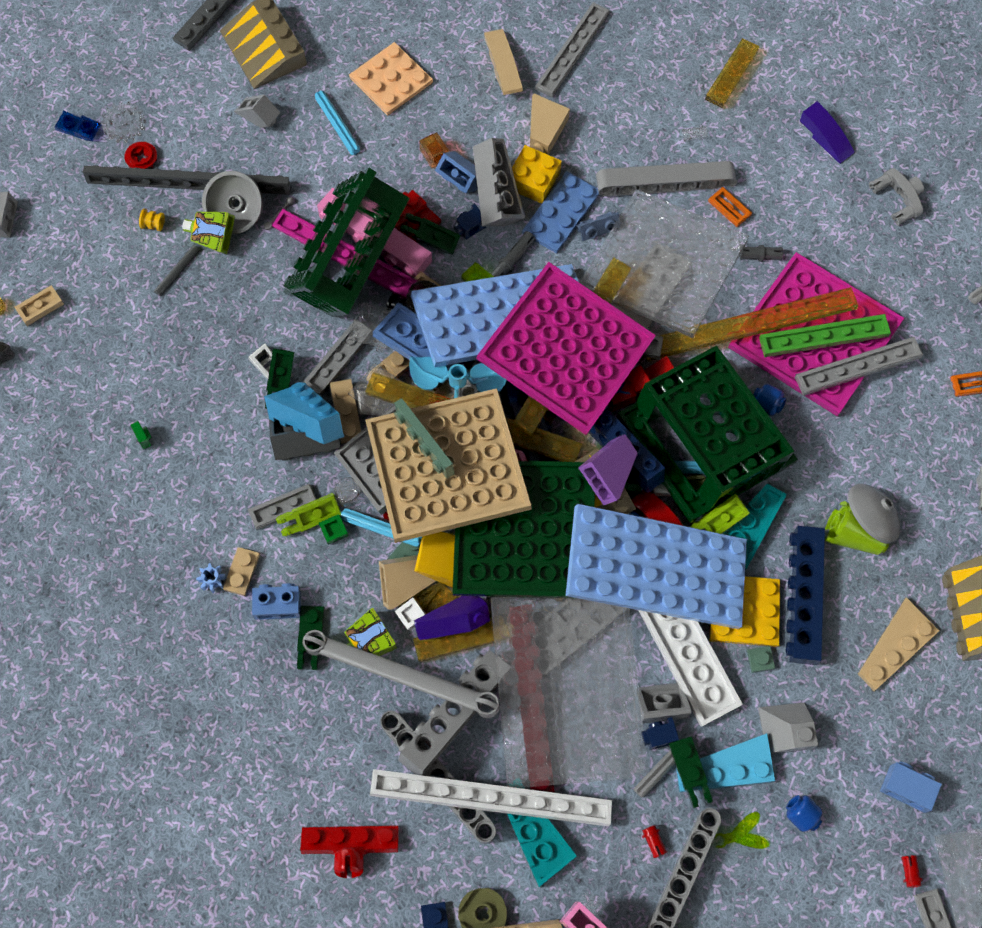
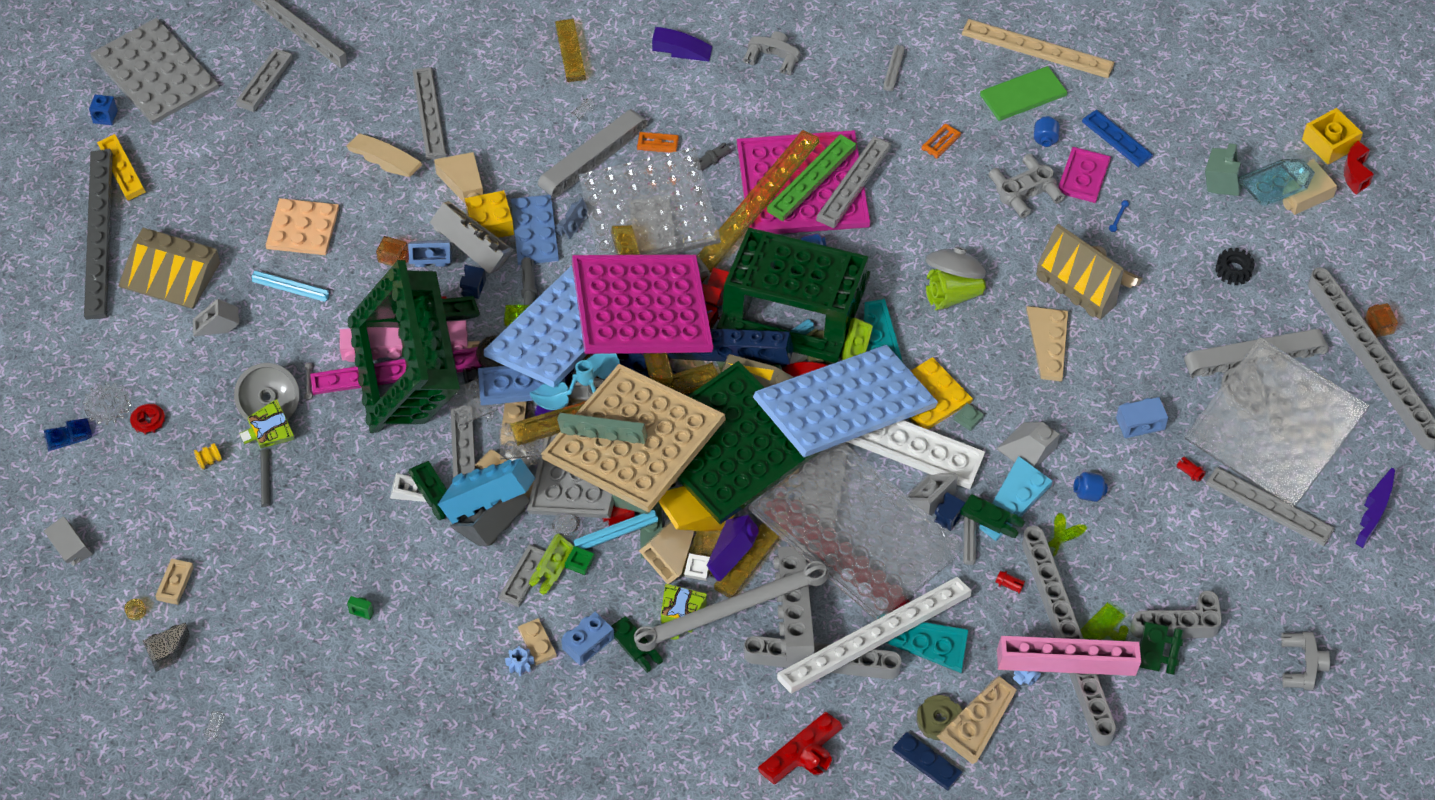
camera: 40 degrees left, 15 degrees down
(174, 179) = (191, 416): dark grey plate -> none
(610, 469) = (754, 356): medium lavender slope -> none
(814, 540) = (951, 340): dark blue brick -> none

